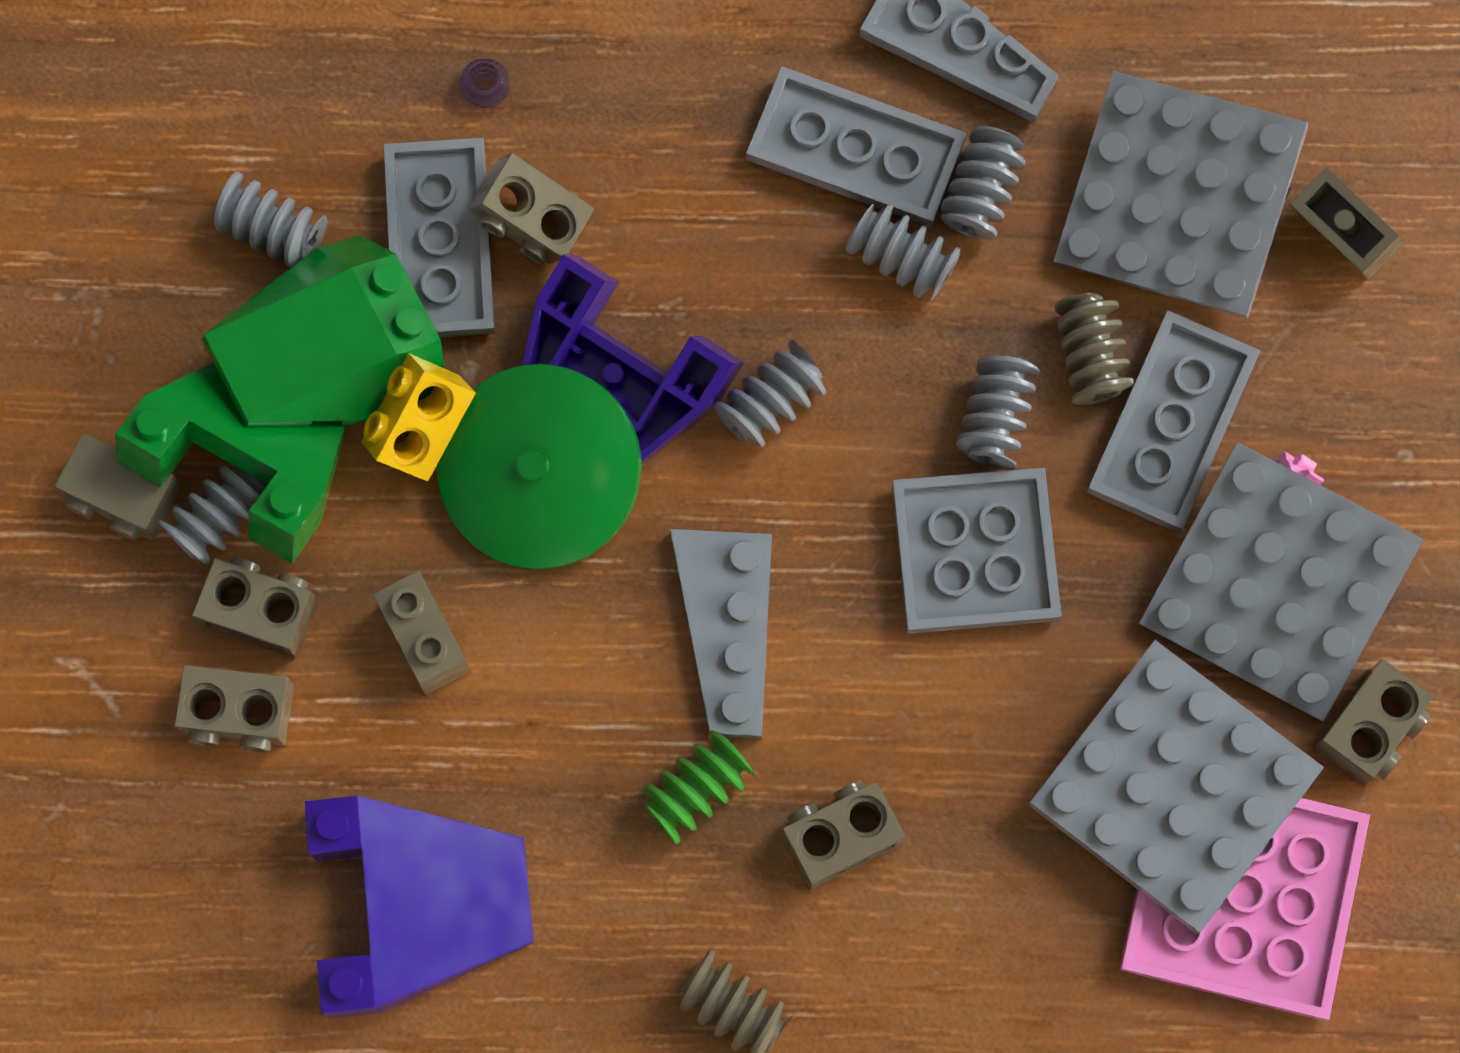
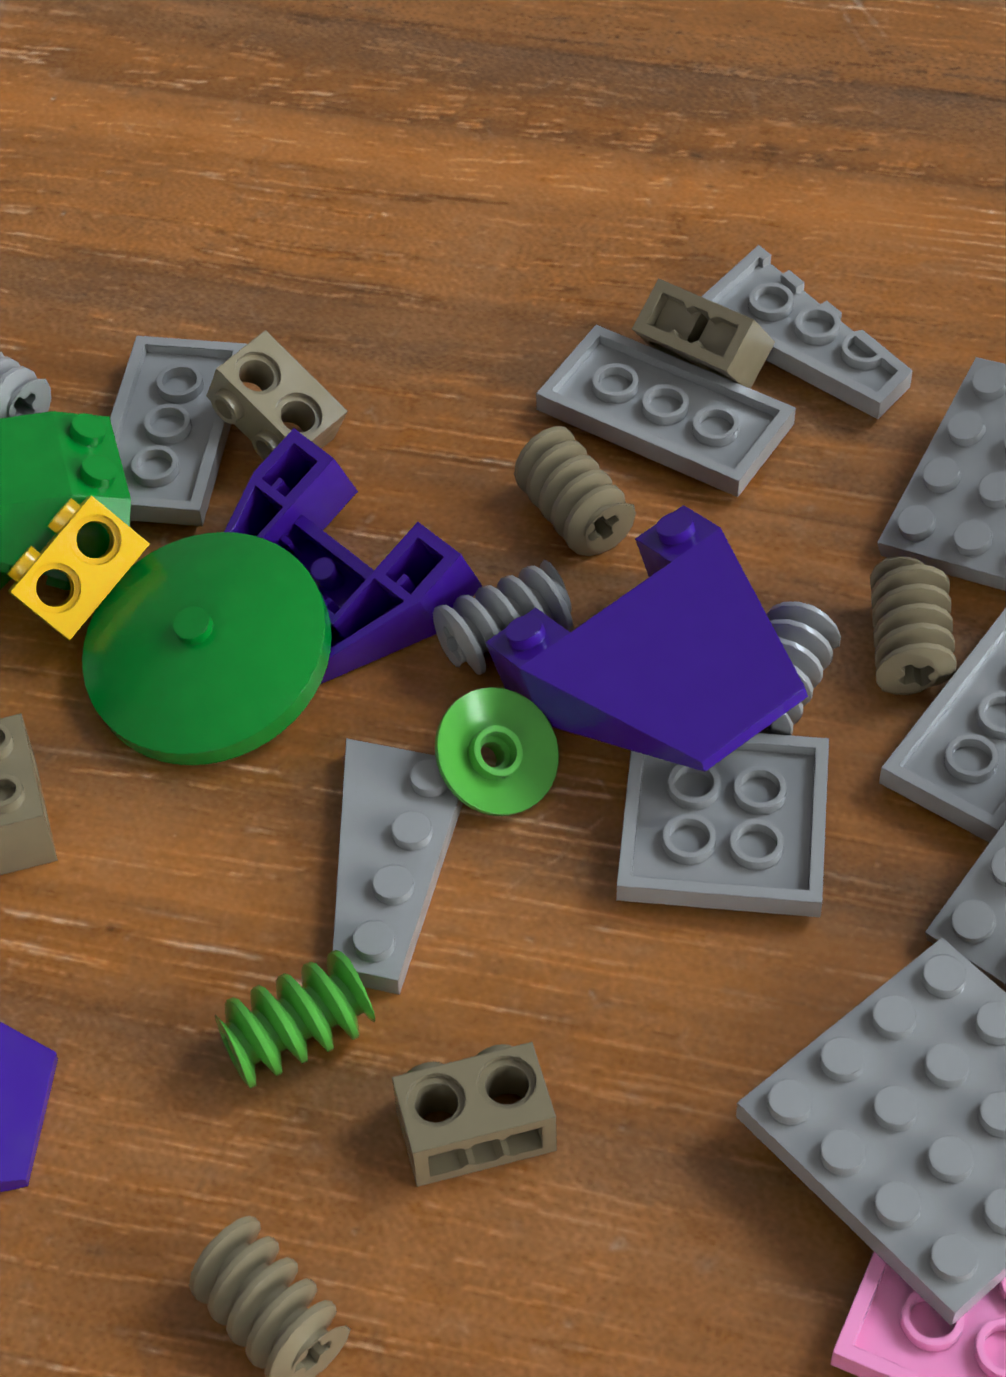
camera: 15 degrees right, 25 degrees down
(484, 69) = (266, 304): clear purple plate -> none
(796, 256) = (573, 492): none -> dark tan piece
(810, 530) = (518, 737): none -> bright green dish
(877, 72) = (703, 333): none -> dark tan brick
(902, 251) = (672, 480): light grey piece -> none
(920, 436) = (670, 666): none -> dark purple wedge
(980, 182) = (806, 453): light grey piece -> none

